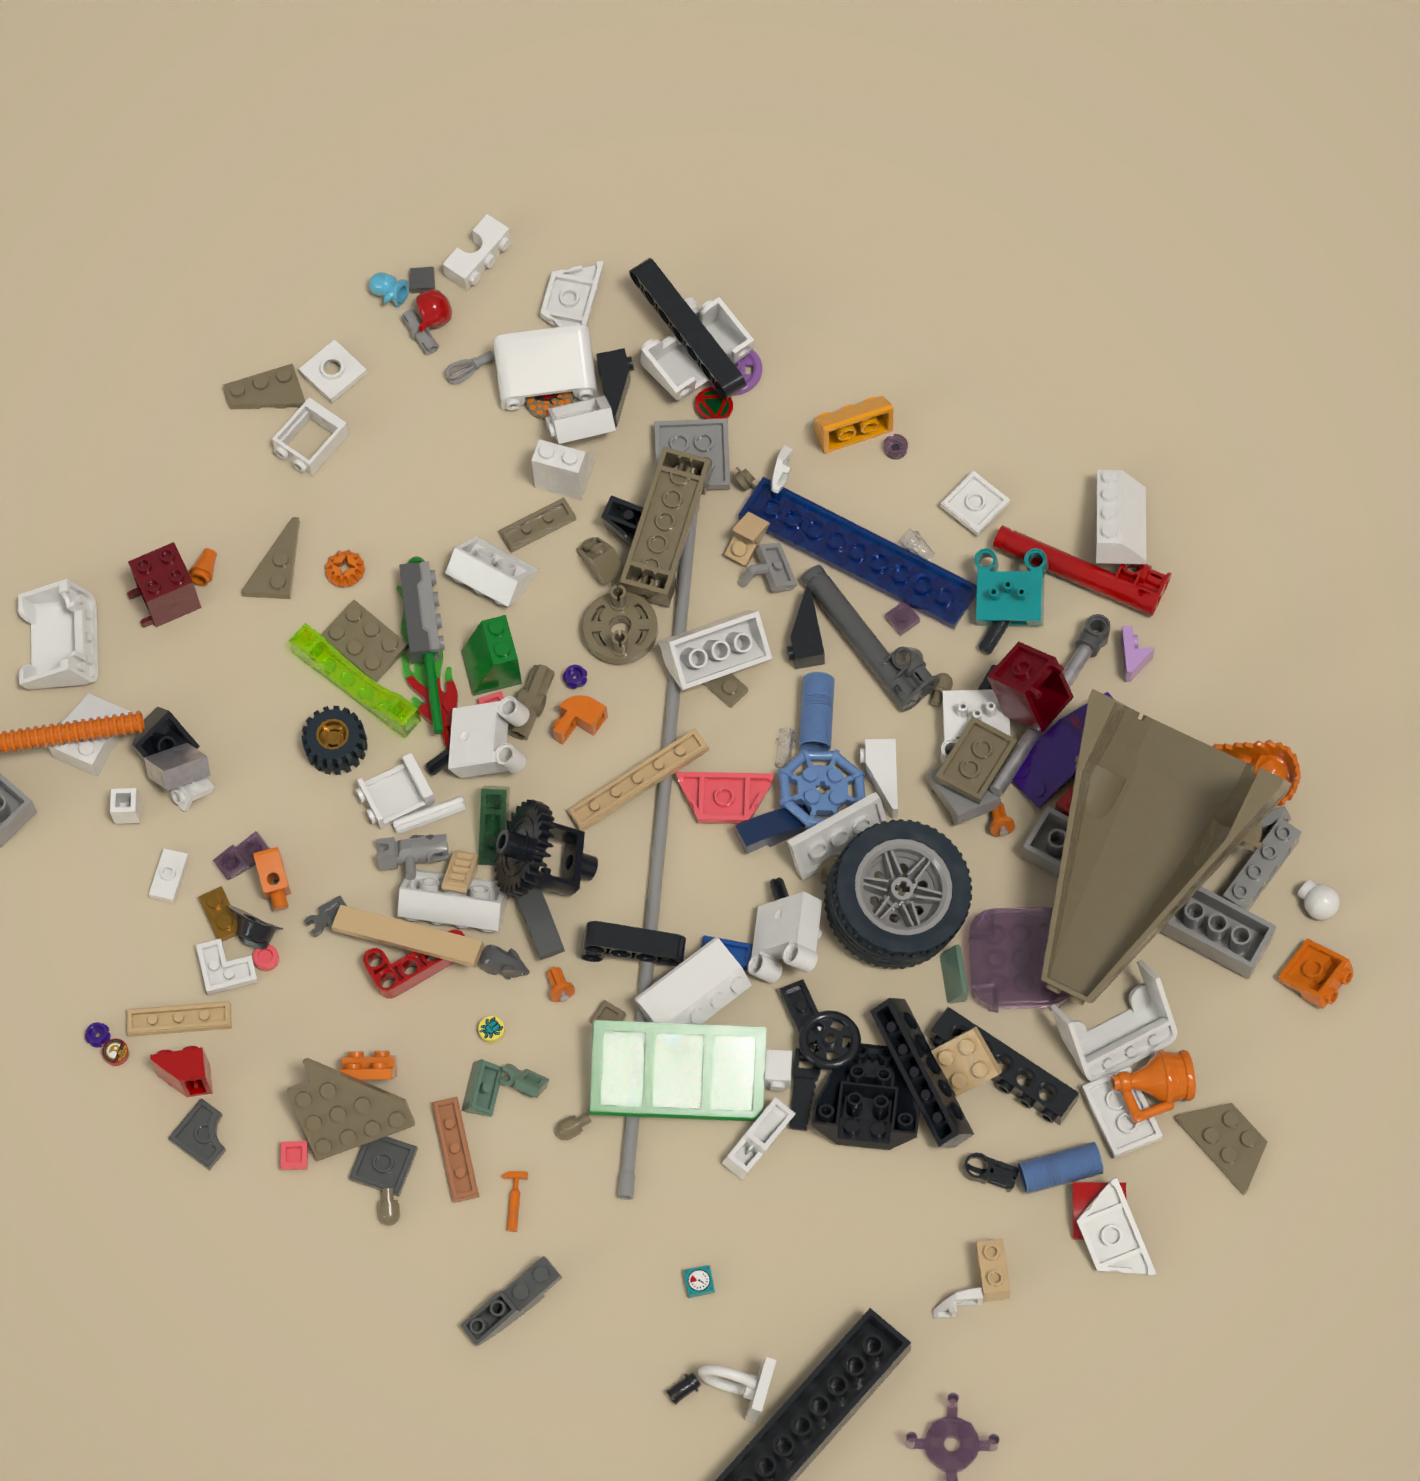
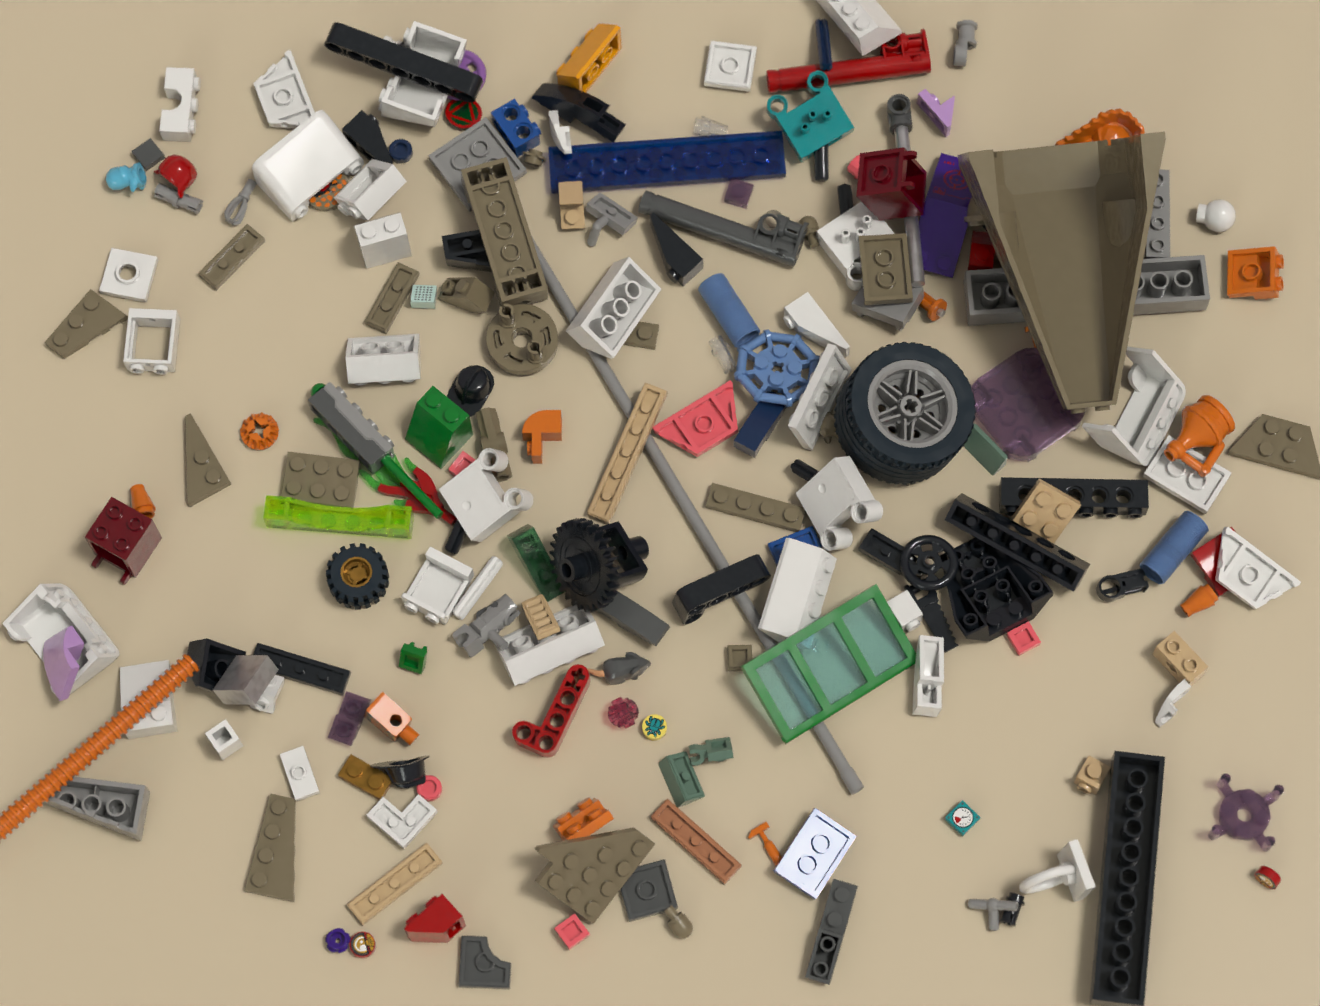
camera: 35 degrees left, 5 degrees up
(46, 647) = (60, 660): none -> lavender slope
(94, 934) = (273, 860): none -> dark tan wing
(236, 791) = (306, 670): none -> black tile
(327, 915) = (459, 718): dark grey plate -> none
(331, 839) = (413, 658): none -> green tile
(407, 935) = (538, 695): tan tile -> none
(429, 408) = (231, 257): none -> dark tan tile
(472, 998) = (623, 712): none -> clear pink gear
(546, 644) = (471, 388): none -> black piece
(546, 1225) = (814, 853): none -> plate
(560, 989) = (688, 659): orange piece -> none
(564, 540) = (423, 296): none -> light aqua slope
(572, 1126) = (775, 762): dark tan cylinder -> none
(575, 670) = (514, 396): dark purple plate -> none
(636, 404) = (400, 151): none -> dark blue tile
(668, 1374) = (993, 906): none -> light grey piece
(716, 898) = (755, 507): none -> dark tan plate
(746, 443) = (512, 129): none -> blue brick
(817, 460) = (580, 105): none -> black slope
(839, 1319) = (1091, 775): none -> tan bracket
(868, 1161) = (1023, 638): none -> coral tile
(895, 446) = (633, 59): tile -> none
(1050, 1230) = (1201, 599): none -> orange cone
(1070, 533) = (823, 44): none -> dark blue axle
(1201, 608) = (964, 42): none -> light grey connector

